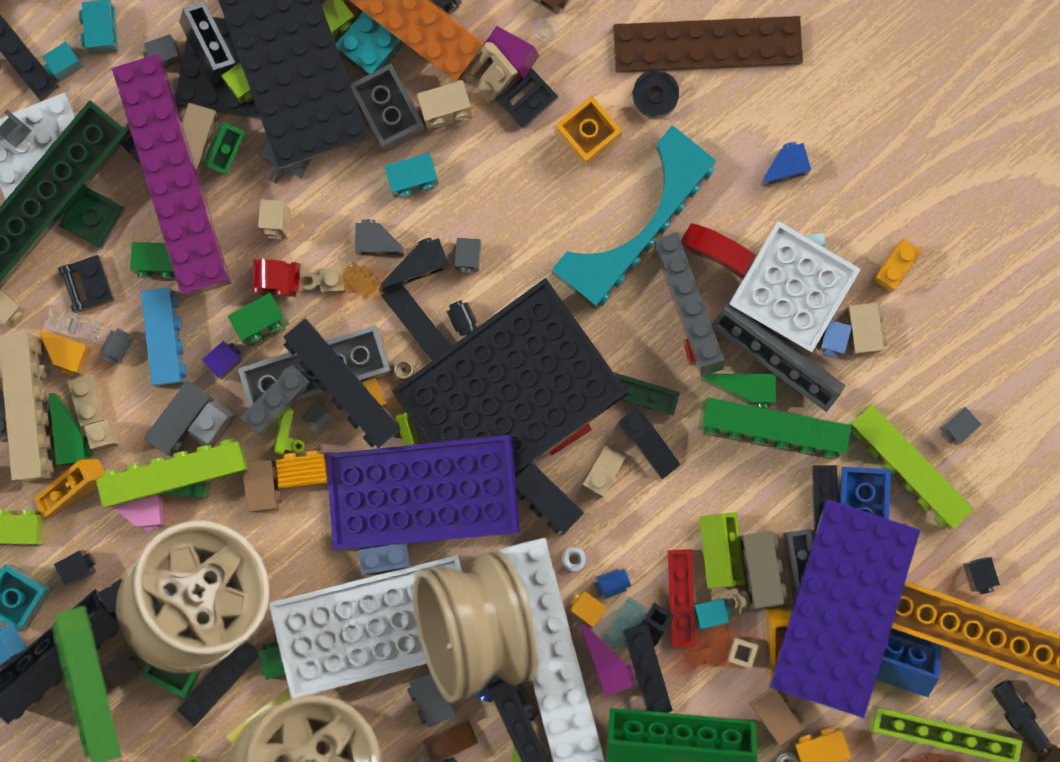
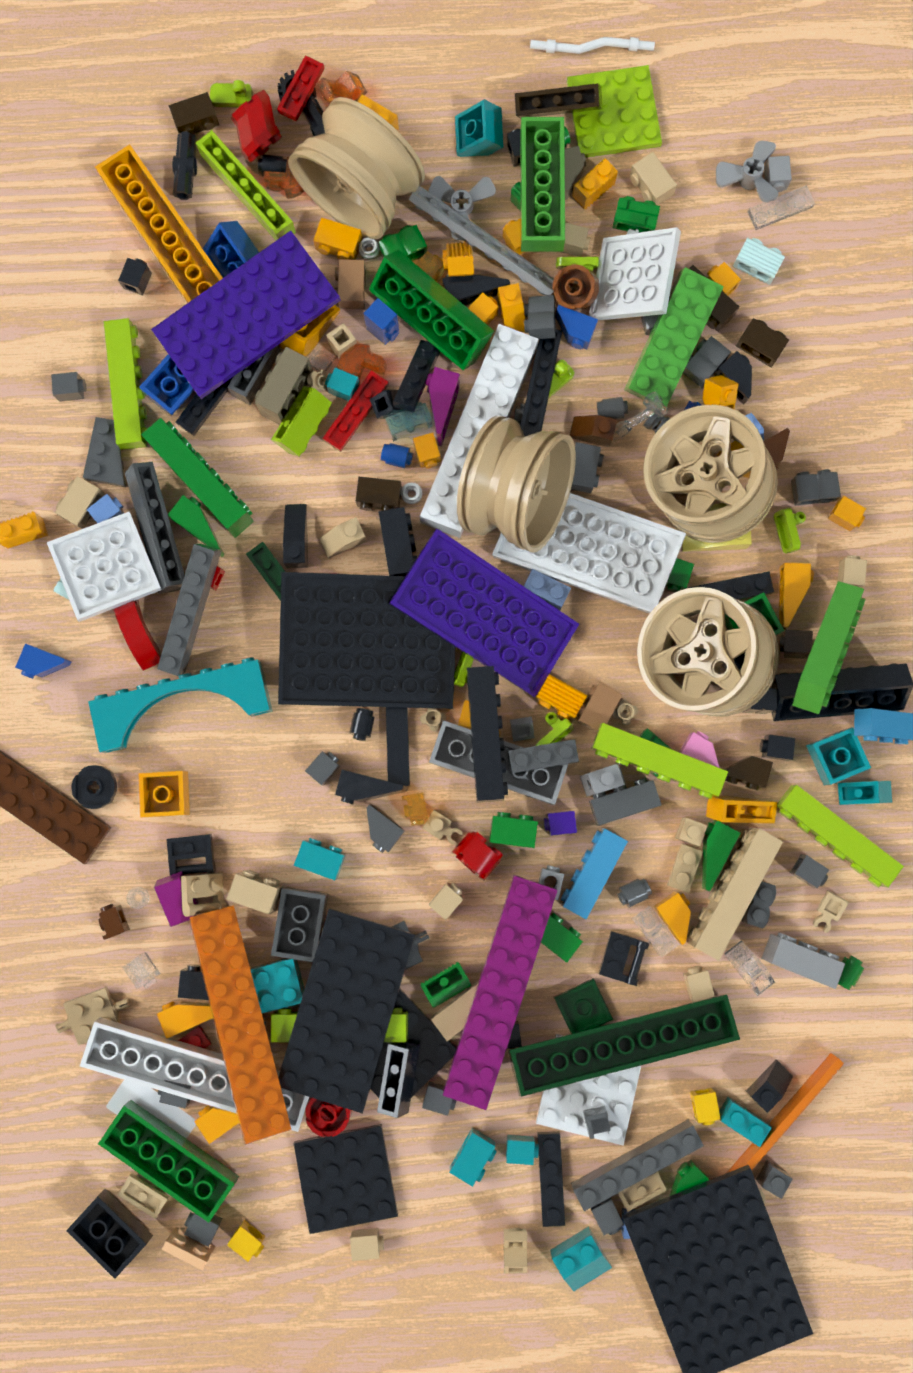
camera: 140 degrees left, 0 degrees up
(87, 527) = (751, 771): none -> dark brown slope
(160, 725) = (793, 585): none -> light orange slope
(200, 312) = (552, 871): none -> light grey brick
(231, 505) = (631, 711): none -> tan plate
(602, 535) = (378, 494): none -> dark brown brick
(717, 697) = (381, 322): none -> blue brick
(877, 387) = (104, 456): none -> dark grey wing

